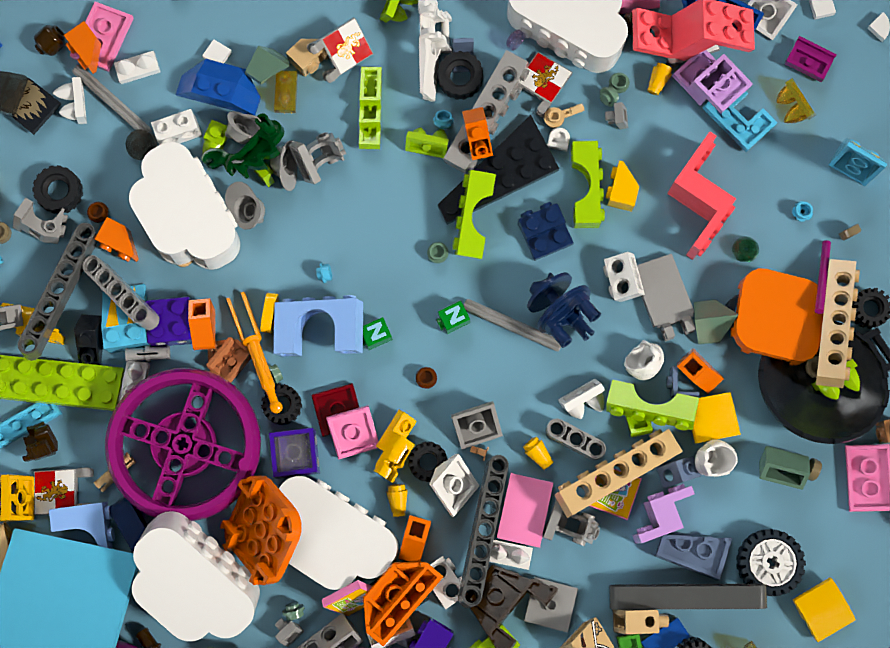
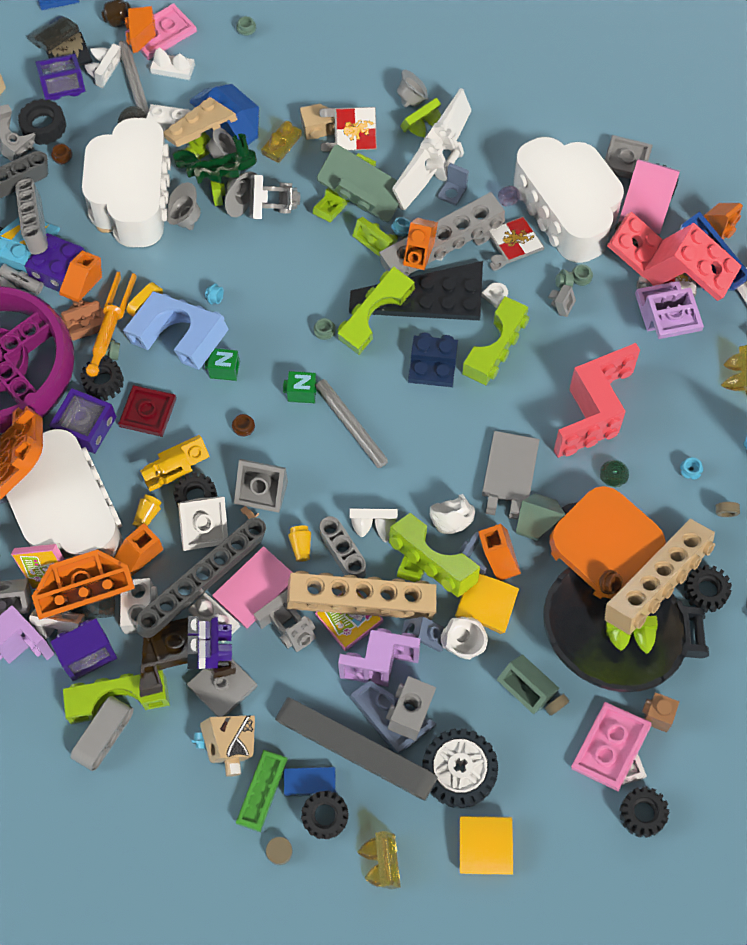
camera: 30 degrees right, 15 degrees down
(46, 138) = (60, 77): none -> piece
(117, 238) = (61, 179): orange slope -> none
(209, 118) = (203, 117): none -> tan wing
(217, 52) = (246, 85): white tile -> none
(265, 64) = (277, 109): sand green slope -> none
(353, 432) = (146, 432): bright pink tile -> none
(386, 100) = (359, 183): none -> sand green bracket
(460, 59) = (436, 185): black tyre -> none
(523, 585) = (203, 643): none -> hips
(555, 117) = (504, 274): tan plate -> none
(563, 308) = (402, 422): dark blue piece -> none
(624, 188) = (527, 362): yellow slope -> none
(629, 274) = (480, 433): white brick -> none
(638, 621) = (288, 735): tan torso -> none
(660, 75) = (621, 288): yellow cone -> none
(715, 528) = (409, 722): none -> light grey brick
(743, 132) = (673, 370): medium azure plate -> none
(805, 353) = (610, 582): none -> reddish brown plate
(822, 279) = (665, 537): magenta bar -> none

